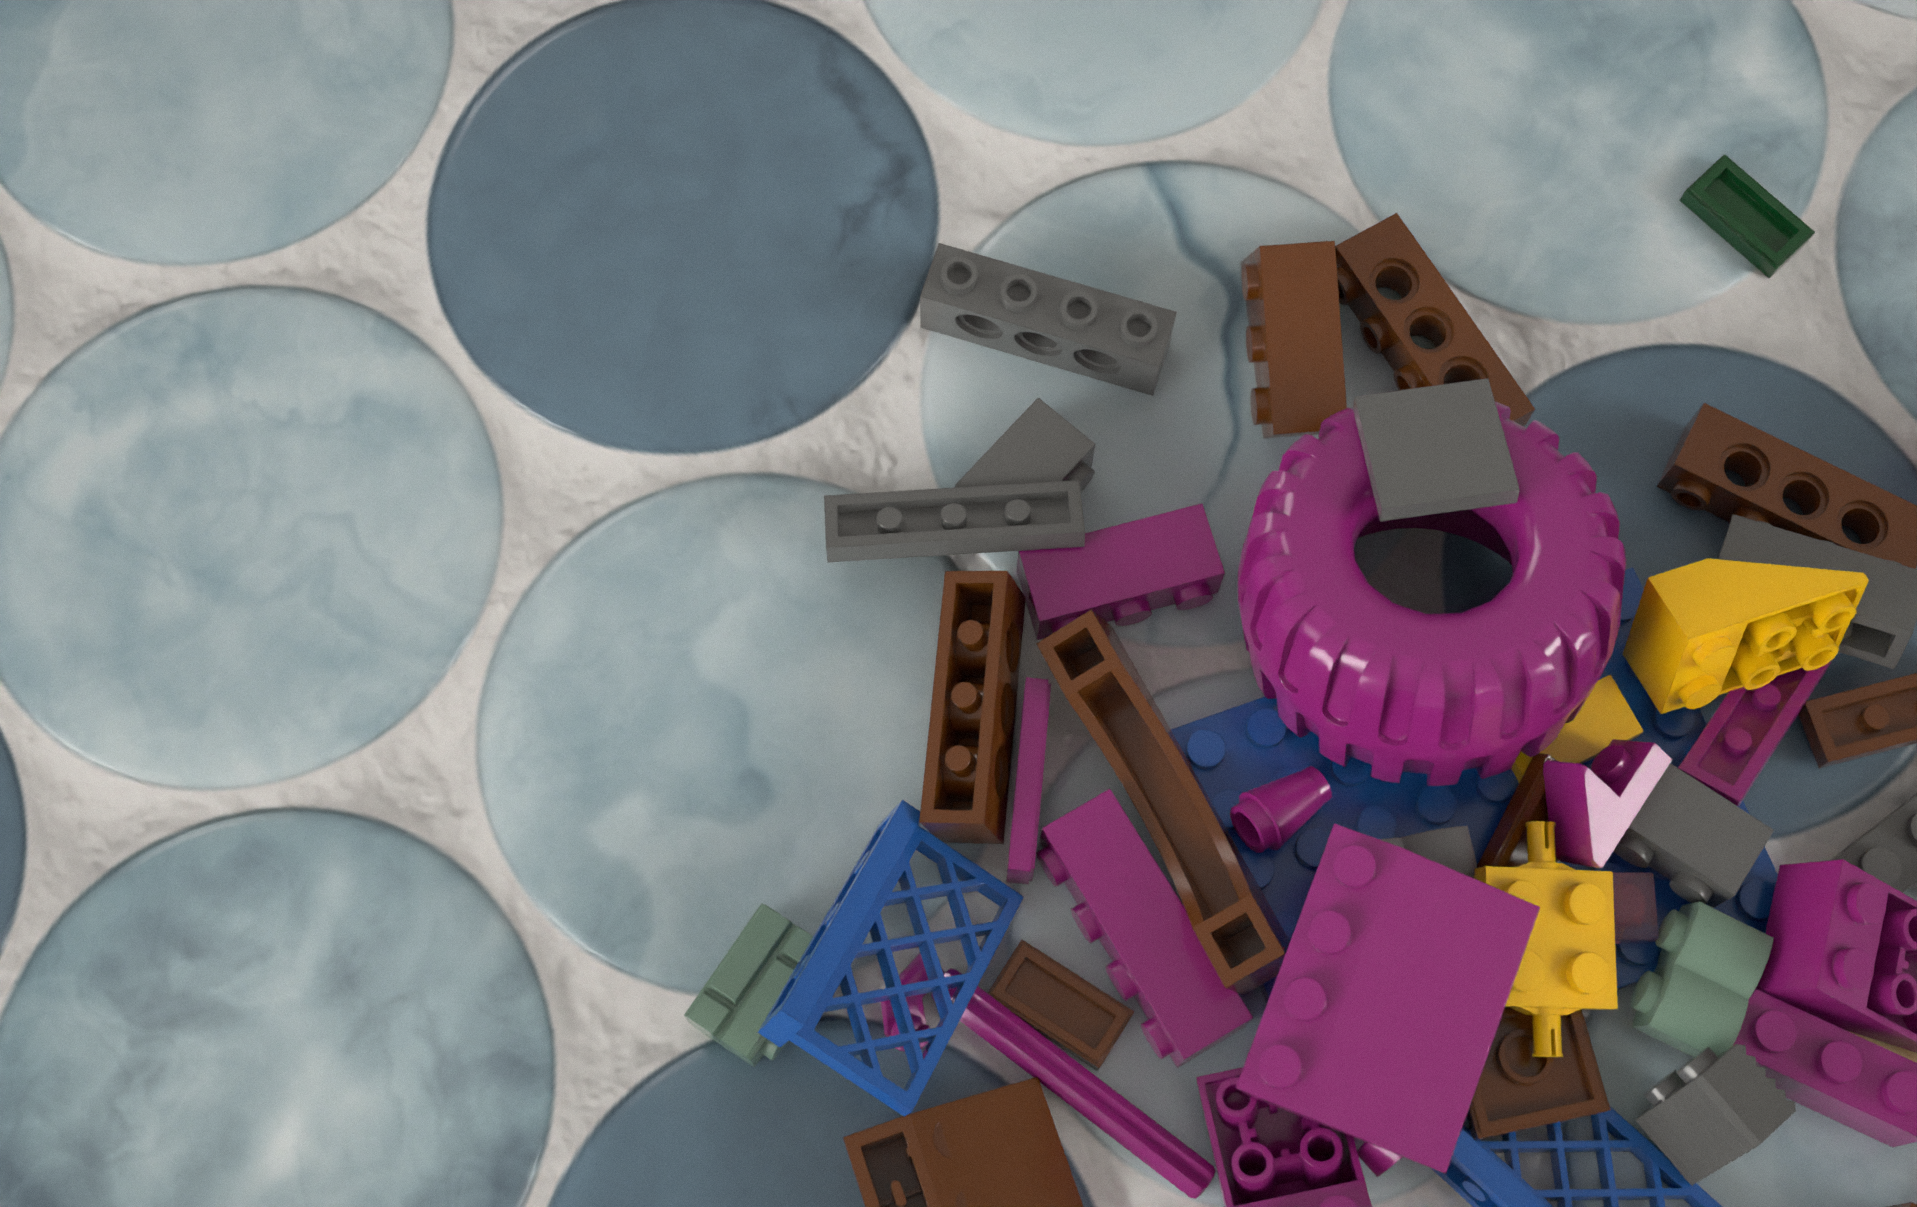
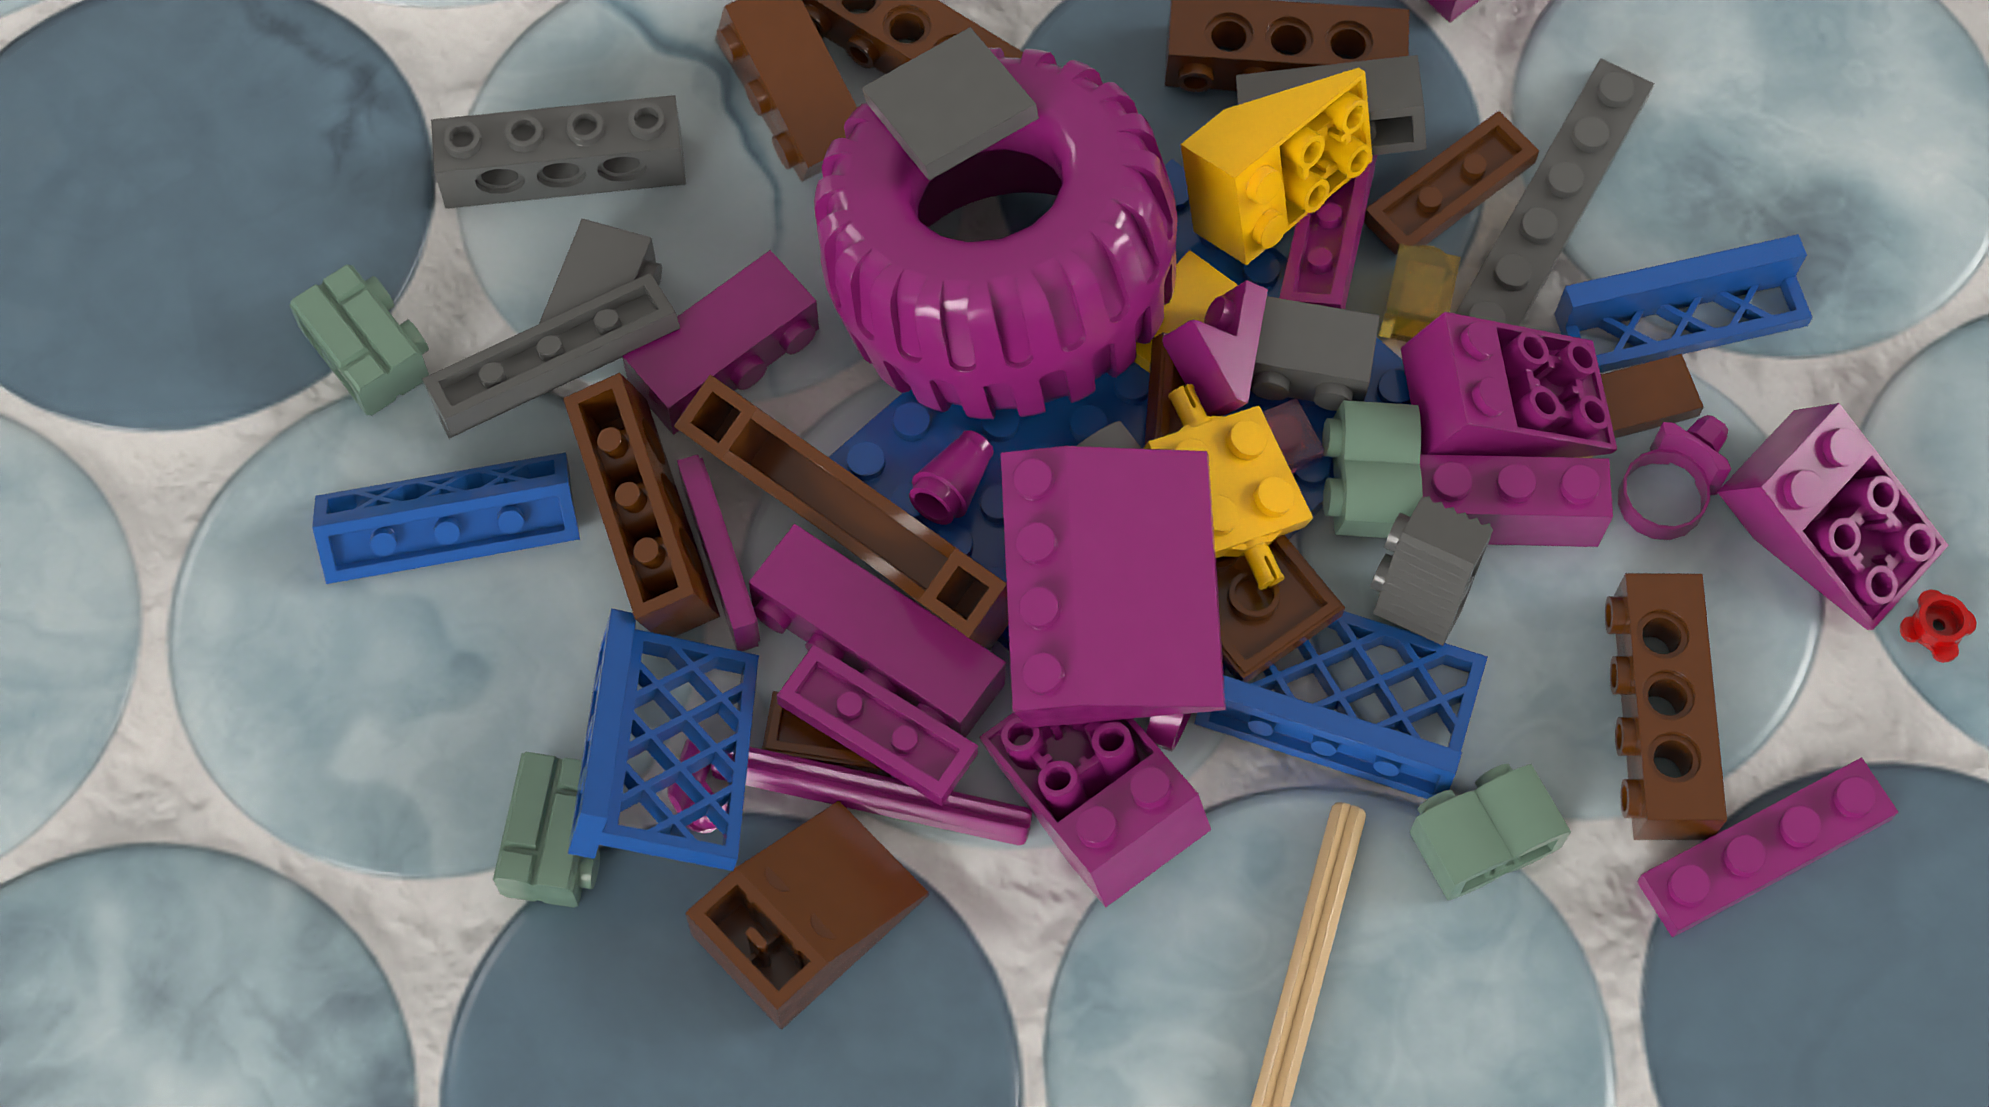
camera: 25 degrees left, 5 degrees down
(788, 427) = (361, 339): none -> sand green brick
(791, 639) = (445, 518): none -> blue fence
(1104, 1024) = (877, 725): none -> magenta plate
(1823, 812) = (1418, 290): none -> clear yellow brick

